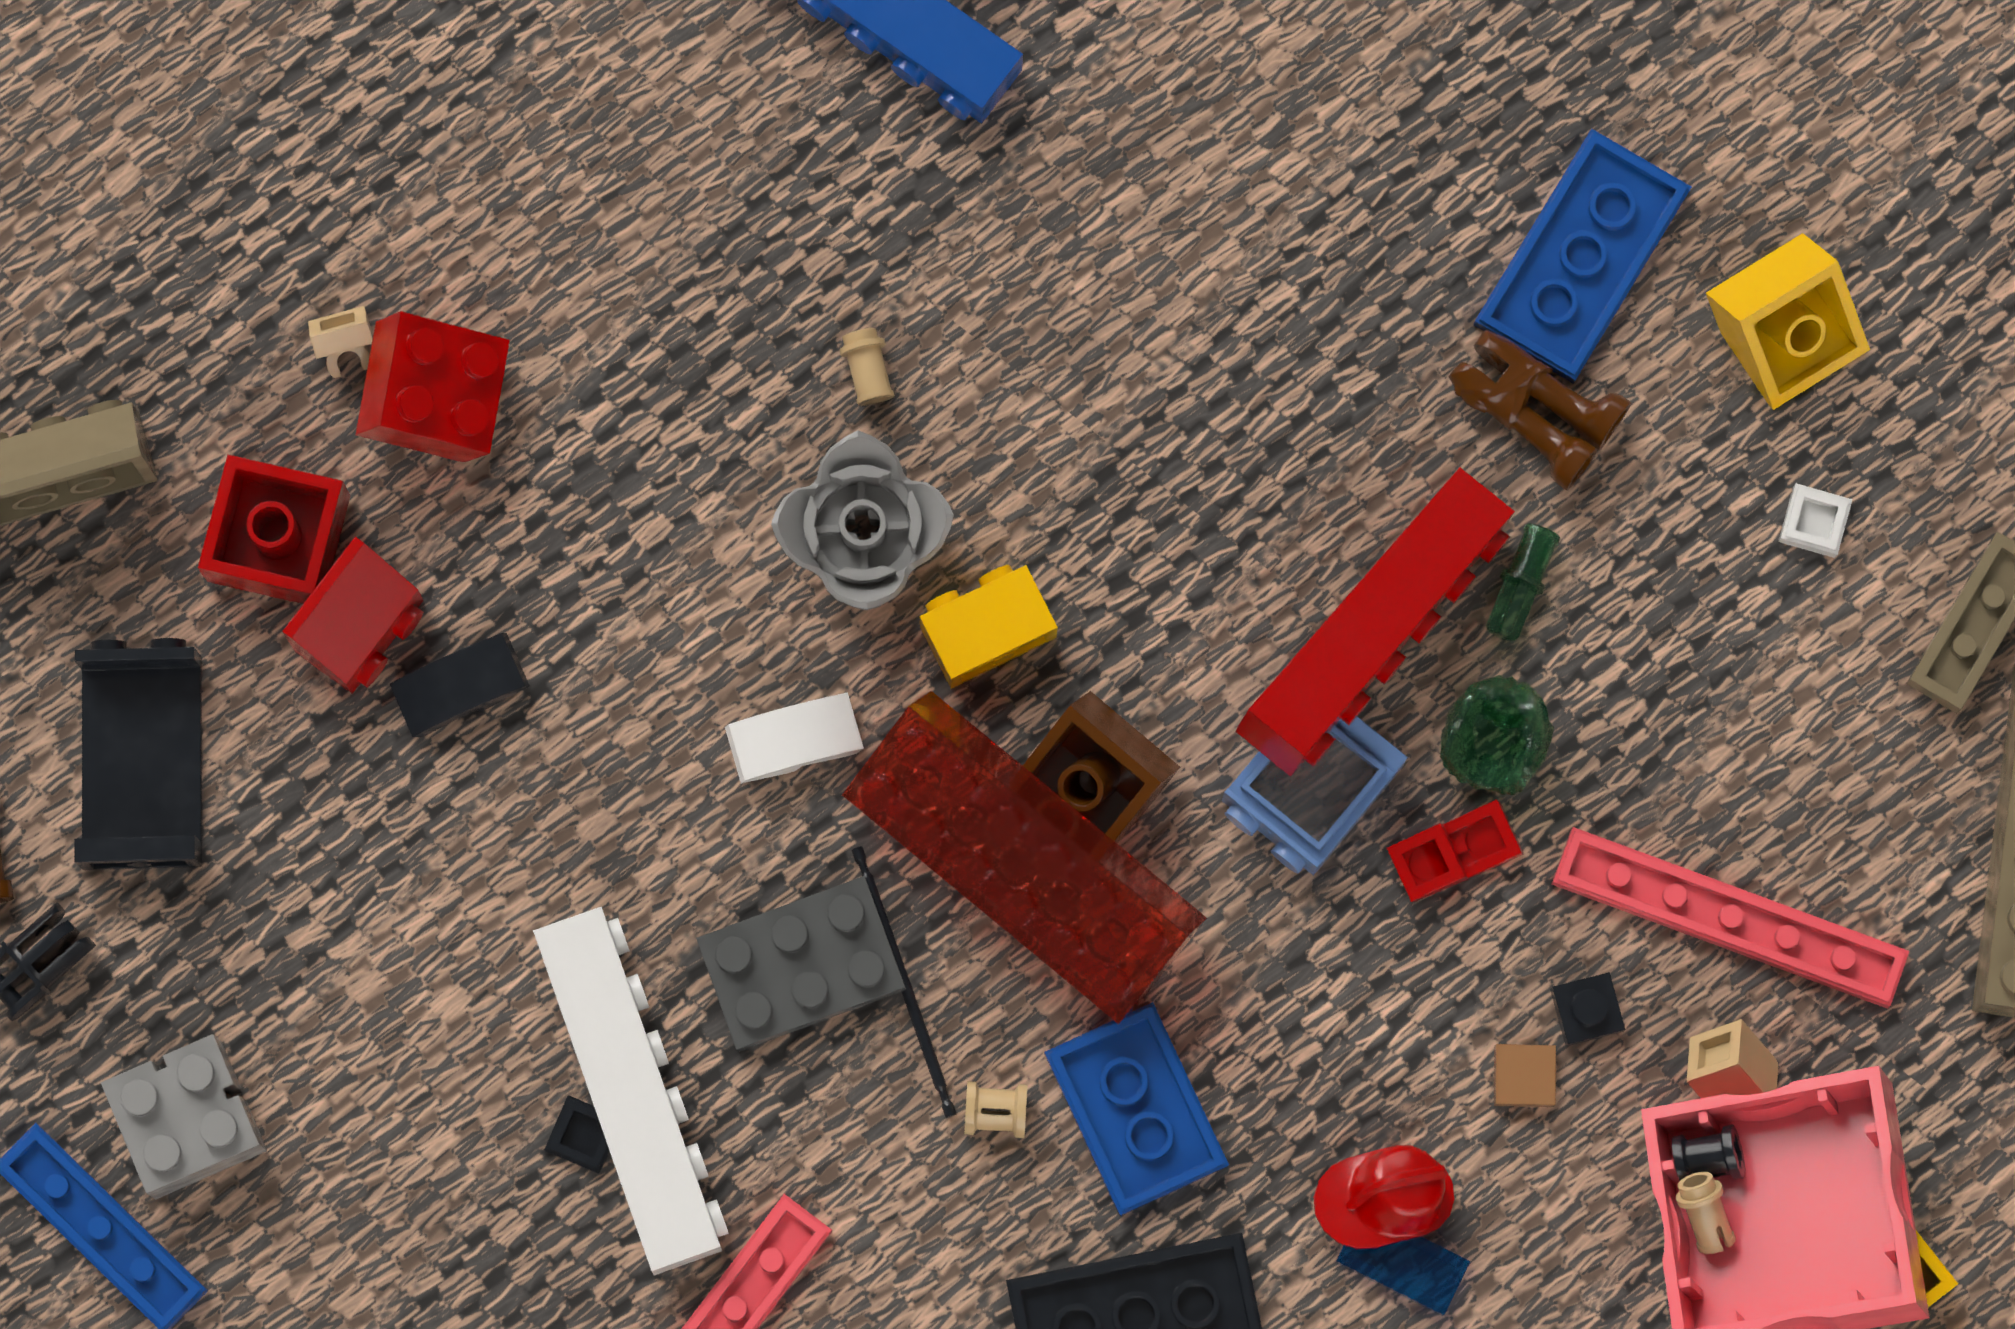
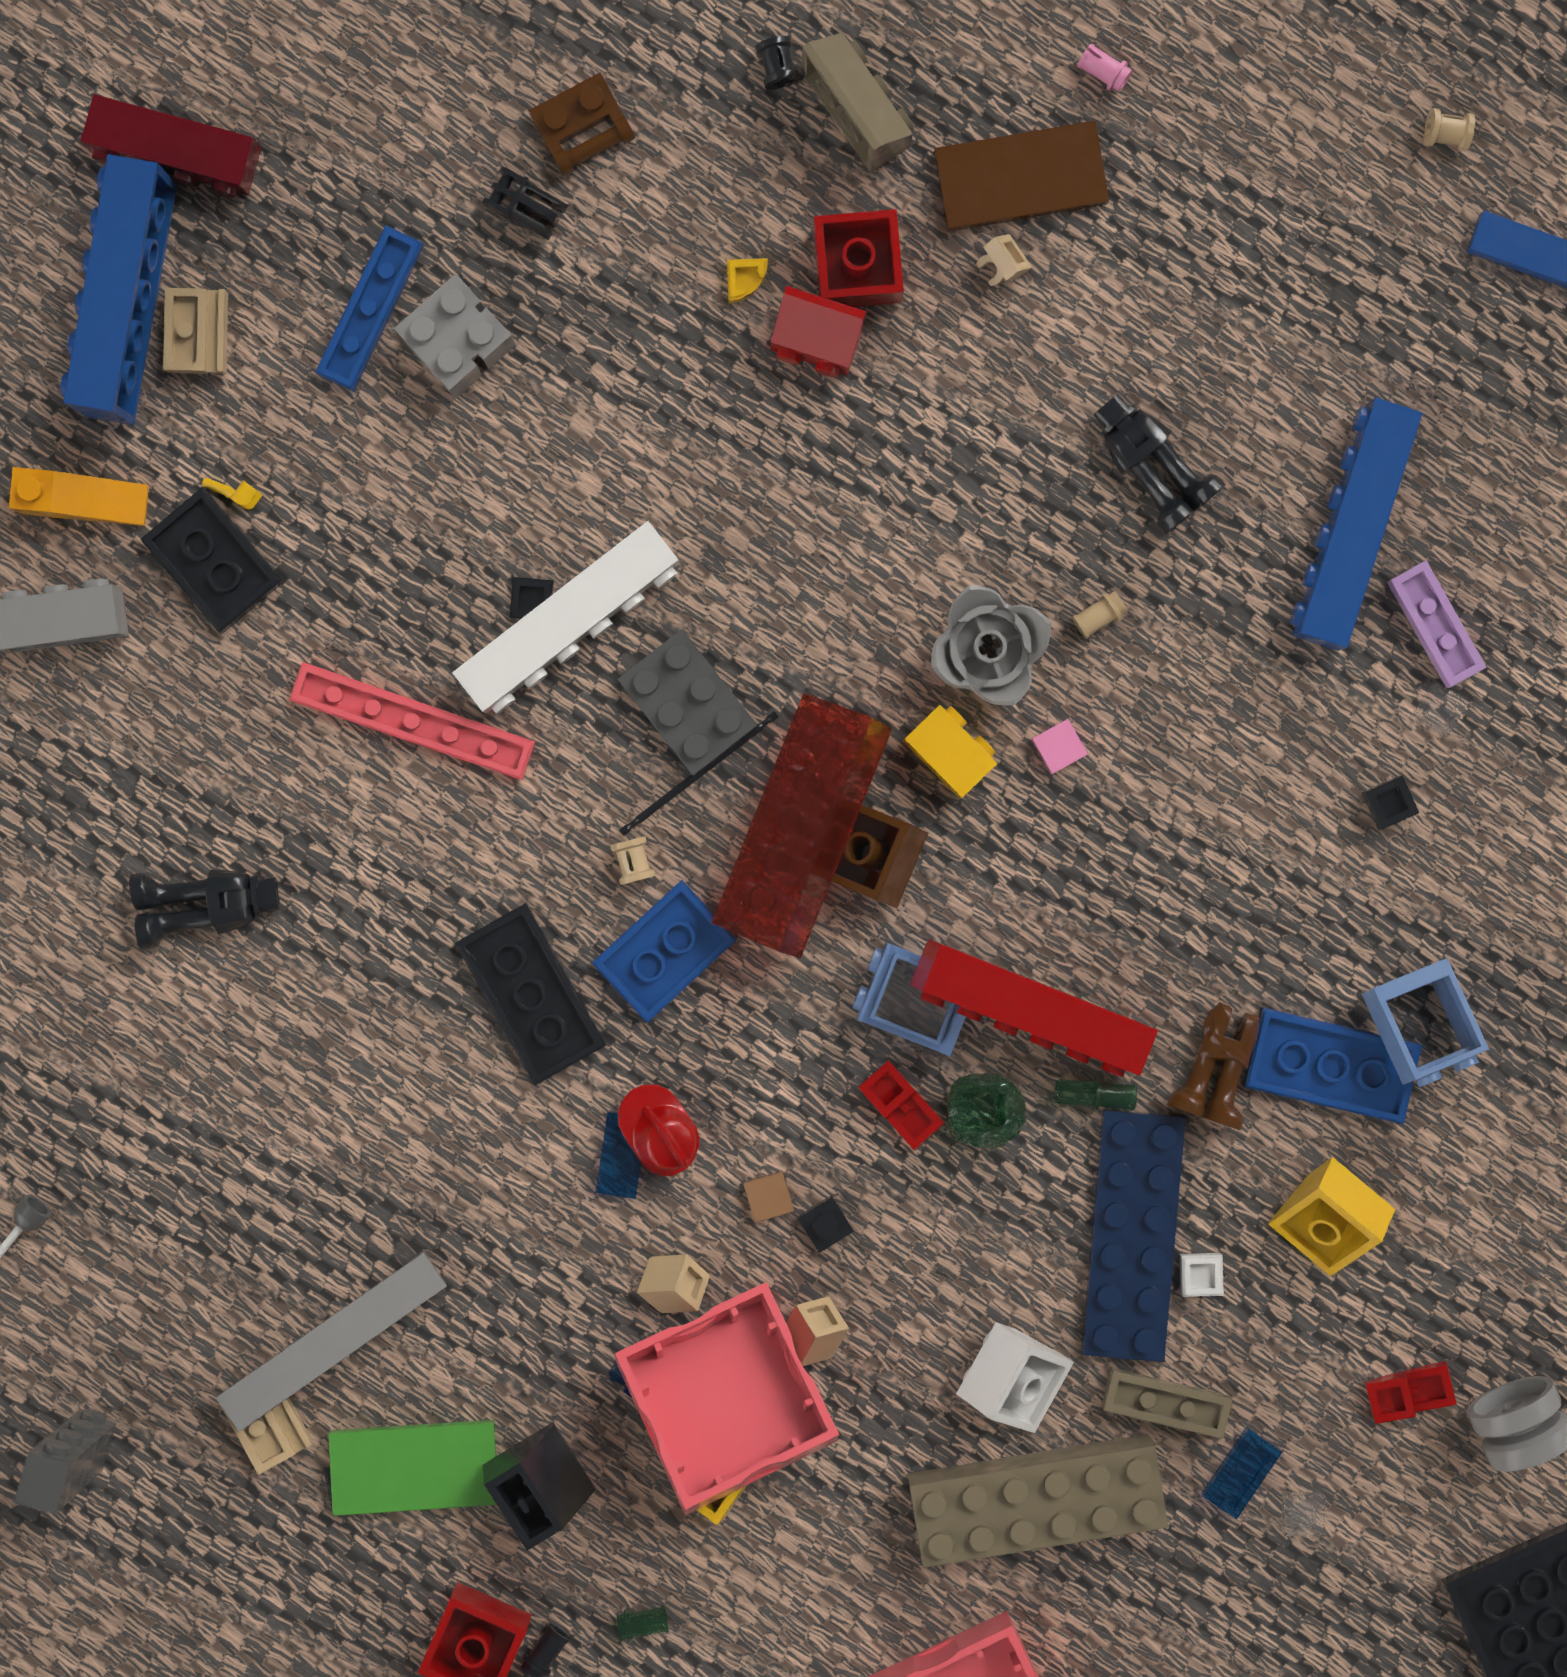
camera: 75 degrees right, 10 degrees up
(130, 122) = (1105, 68): none -> bright pink pin
(141, 756) = (682, 226): black panel -> none
(235, 280) = (1021, 176): none -> reddish brown tile
(240, 696) = (745, 277): none -> yellow tile
(432, 387) = (988, 330): red brick -> none
(459, 684) = (798, 417): black slope -> none
(645, 236) = (1136, 438): none -> black piece
(794, 737) = (834, 648): white slope -> none
(1029, 478) = (1059, 746): none -> bright pink tile
(1250, 65) = (1390, 802): none -> black plate
(1559, 67) = (1455, 1007): none -> medium blue window
(1606, 1246) = (673, 1283): none -> tan panel
(1705, 1211) = (717, 1341): tan pin -> none
(1716, 1153) = (749, 1335): black bush -> none
(1730, 917) = (916, 1298): coral tile -> none
(1733, 595) = (1133, 1235): none -> dark blue plate
(1880, 817) = (1014, 1378): none -> white slope

